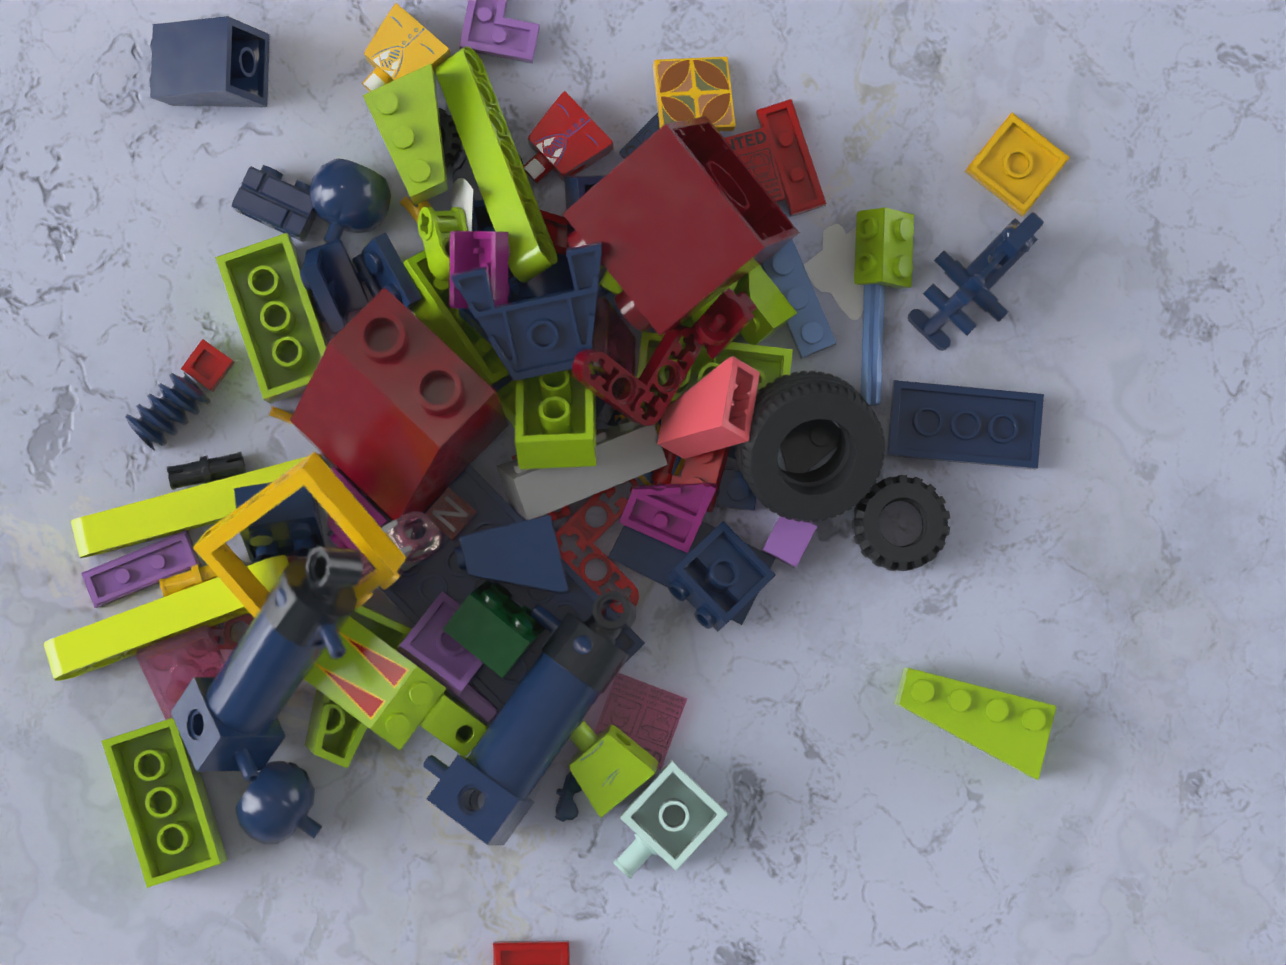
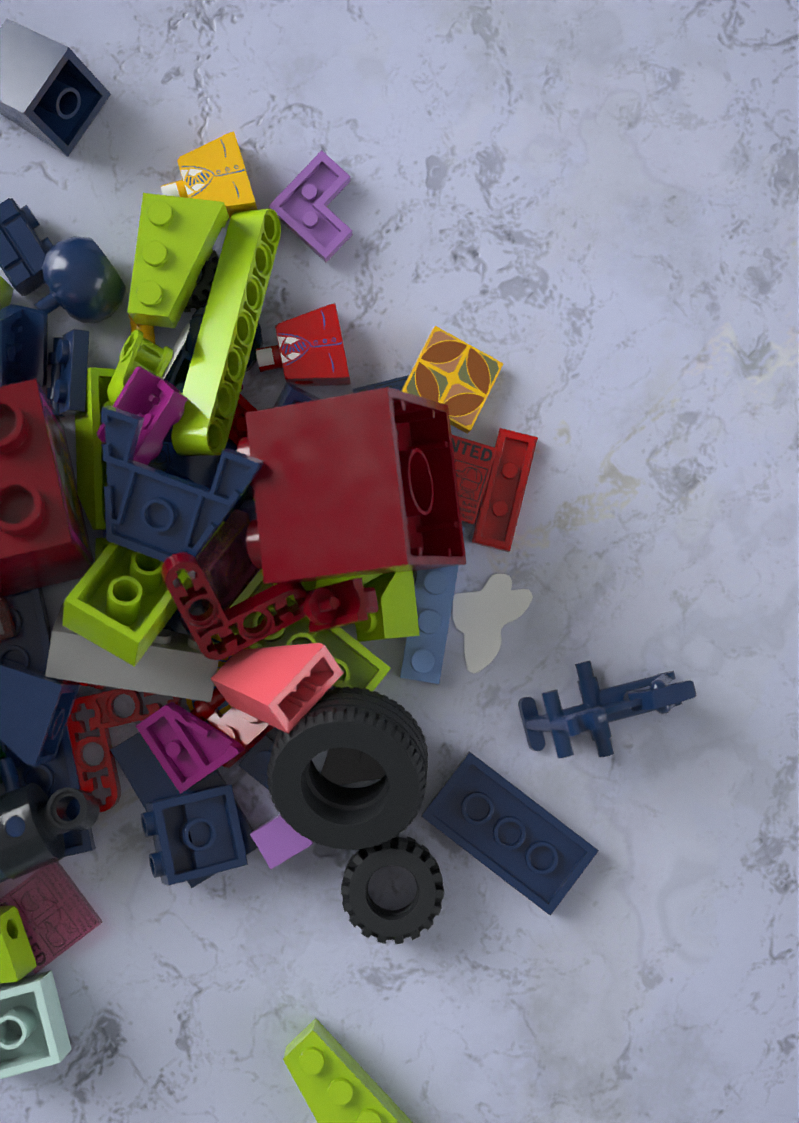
camera: 30 degrees right, 0 degrees up
(872, 343) = (489, 678): medium blue axle -> none
(884, 248) = (536, 625): lime bracket -> none
(1017, 164) = (706, 623): yellow tile -> none

